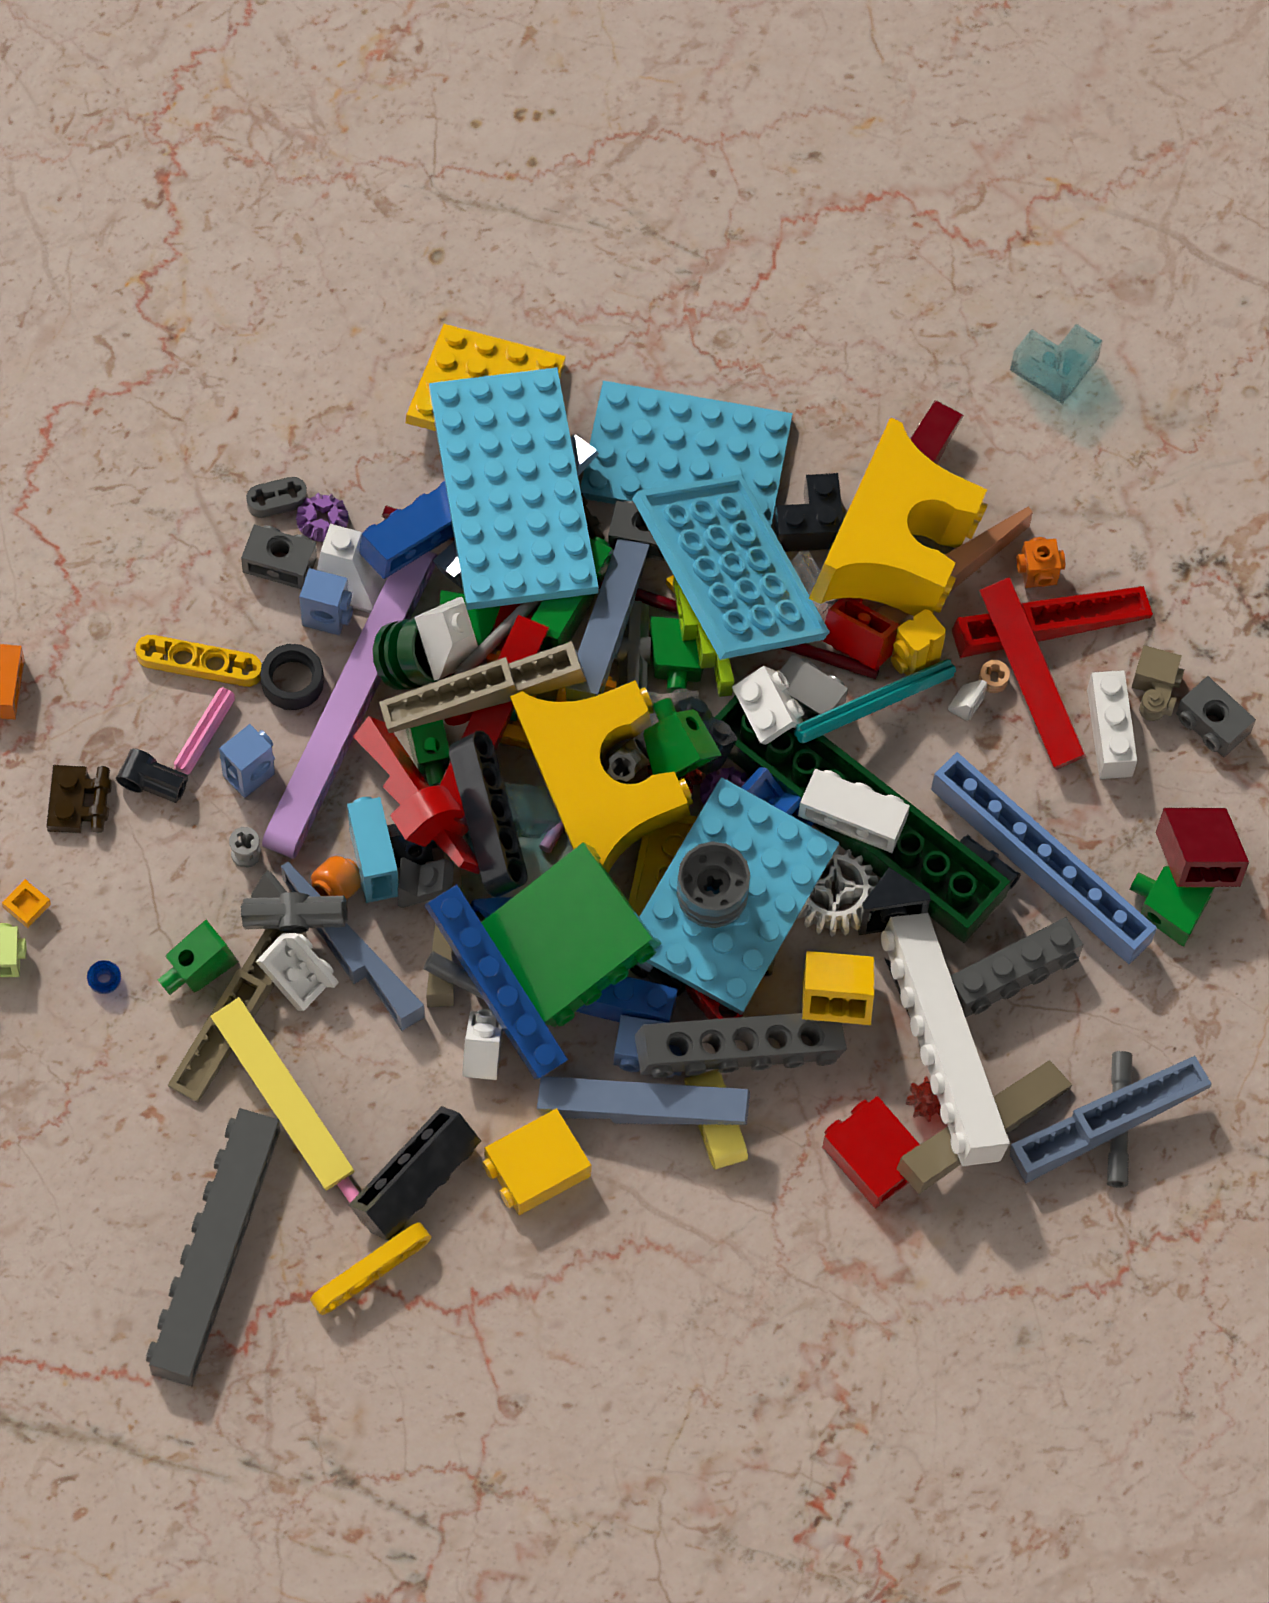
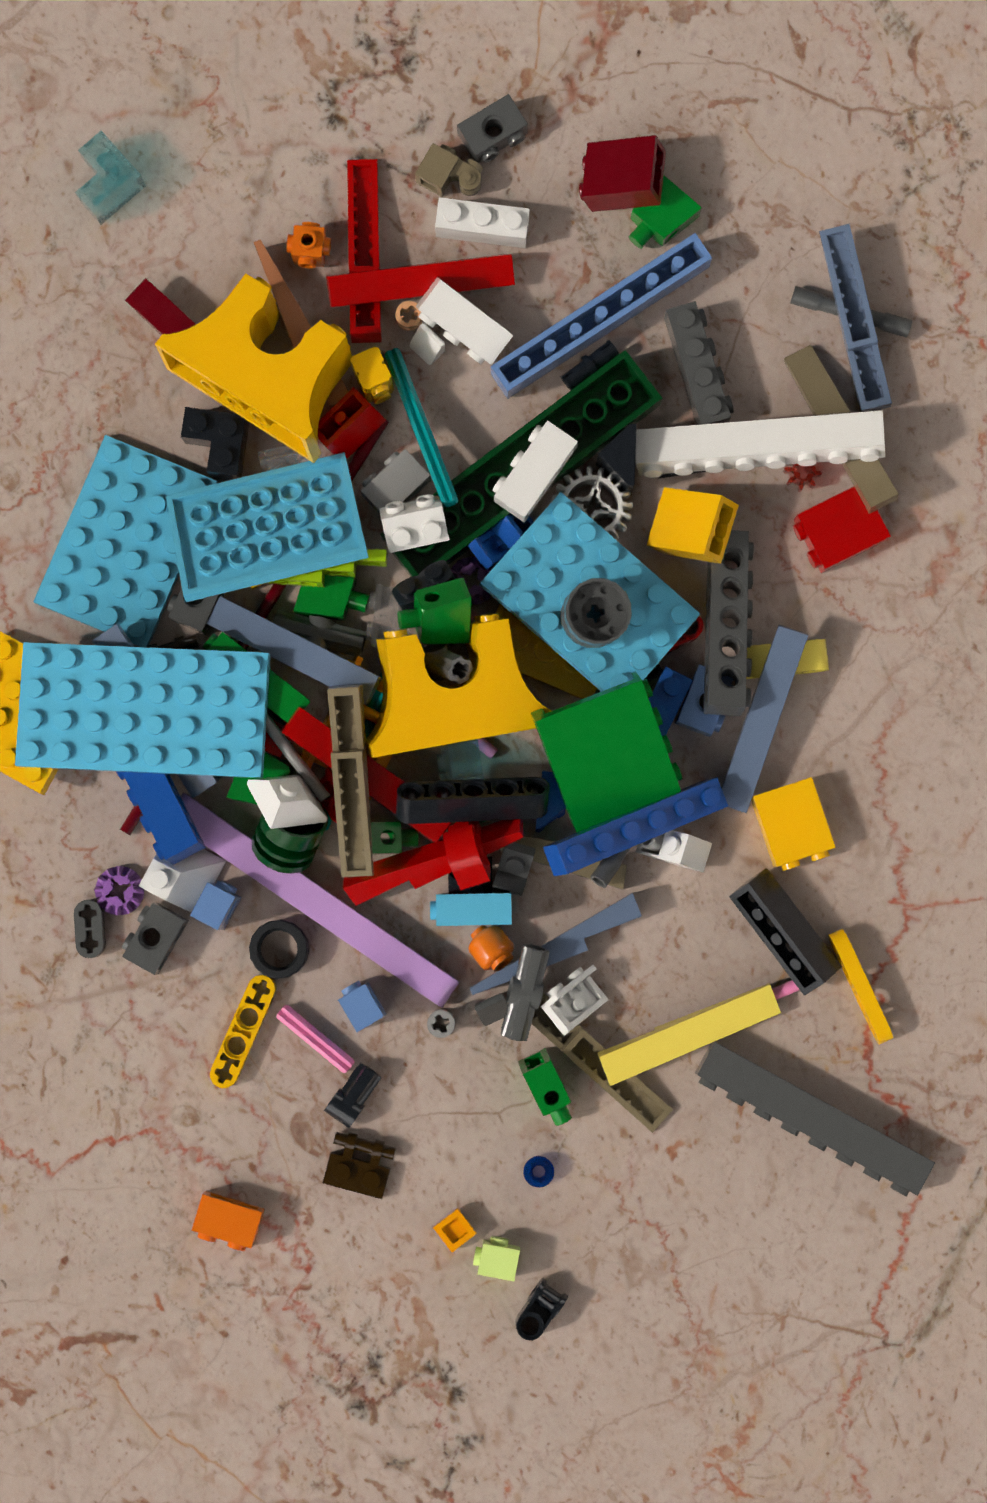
camera: 70 degrees left, 20 degrees up
(999, 720) = (463, 322): none -> white brick

